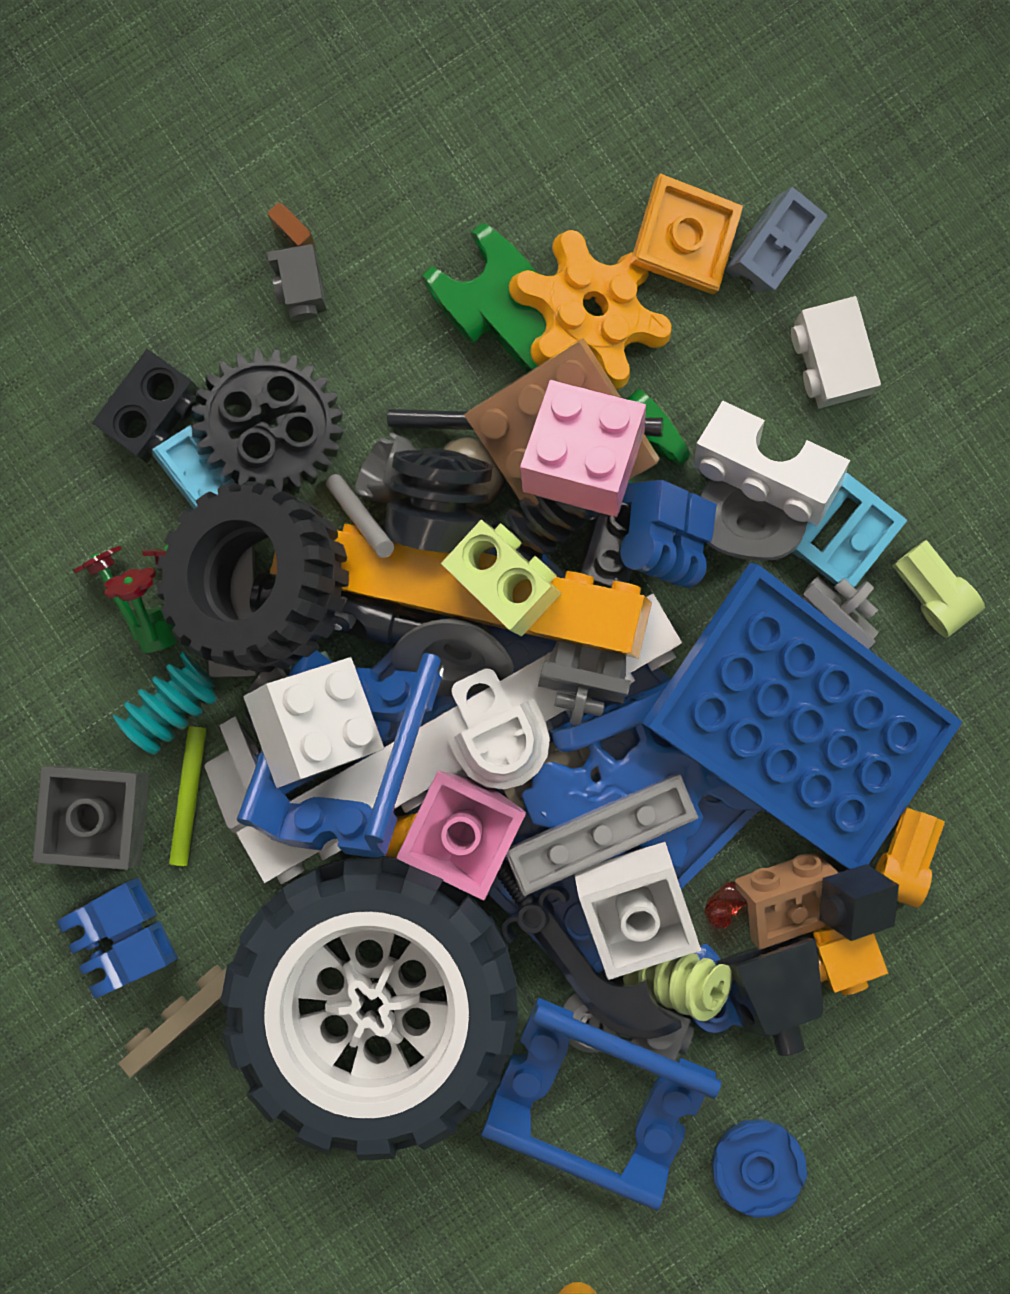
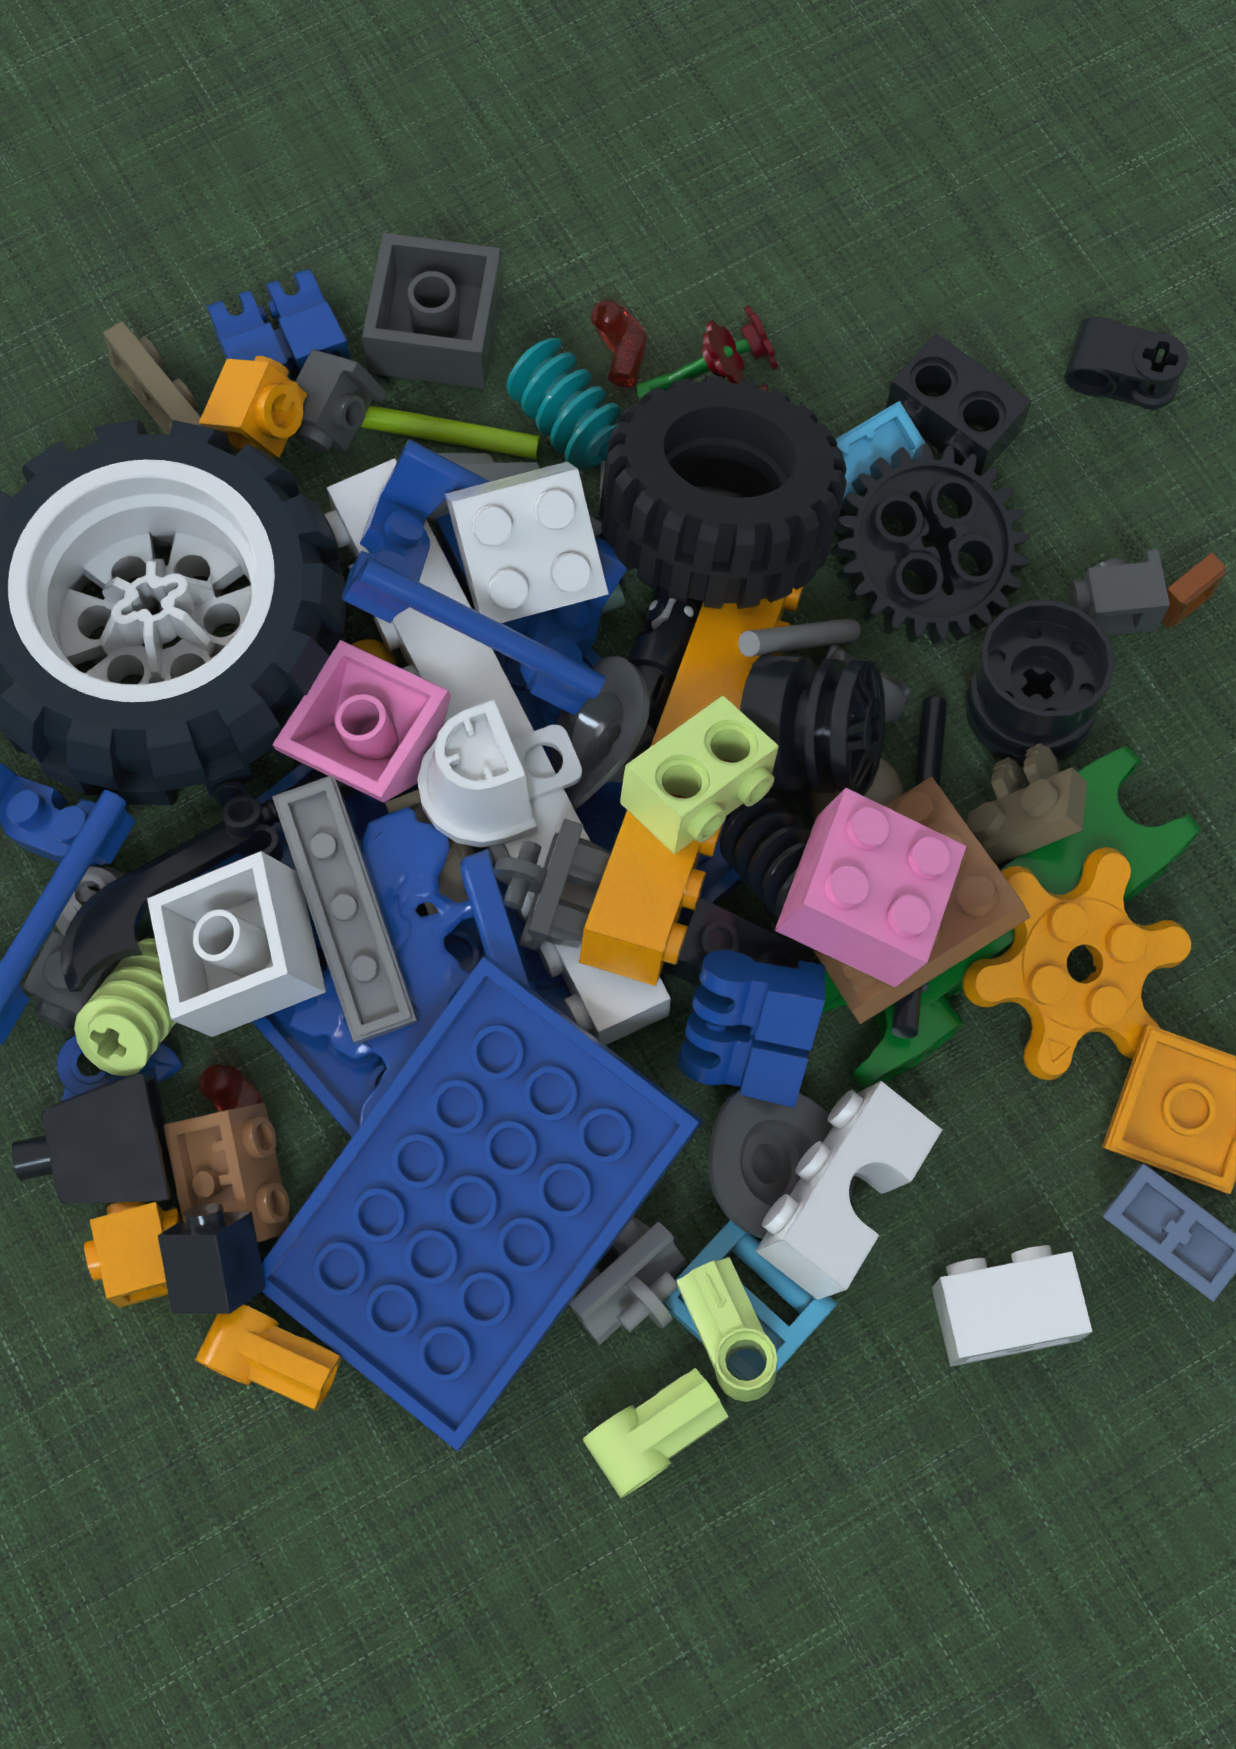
camera: 90 degrees right, 15 degrees down
(99, 666) = (624, 338): none -> clear red arm
(101, 288) = (1119, 363): none -> black piece
(176, 891) = (335, 400): none -> dark grey brick
(192, 947) = (255, 405): none -> light orange brick
(366, 317) = (1039, 680): none -> black wheel
(488, 345) = (1029, 815): none -> dark tan hinge
(874, 542) = (727, 1325): none -> yellowish green piece

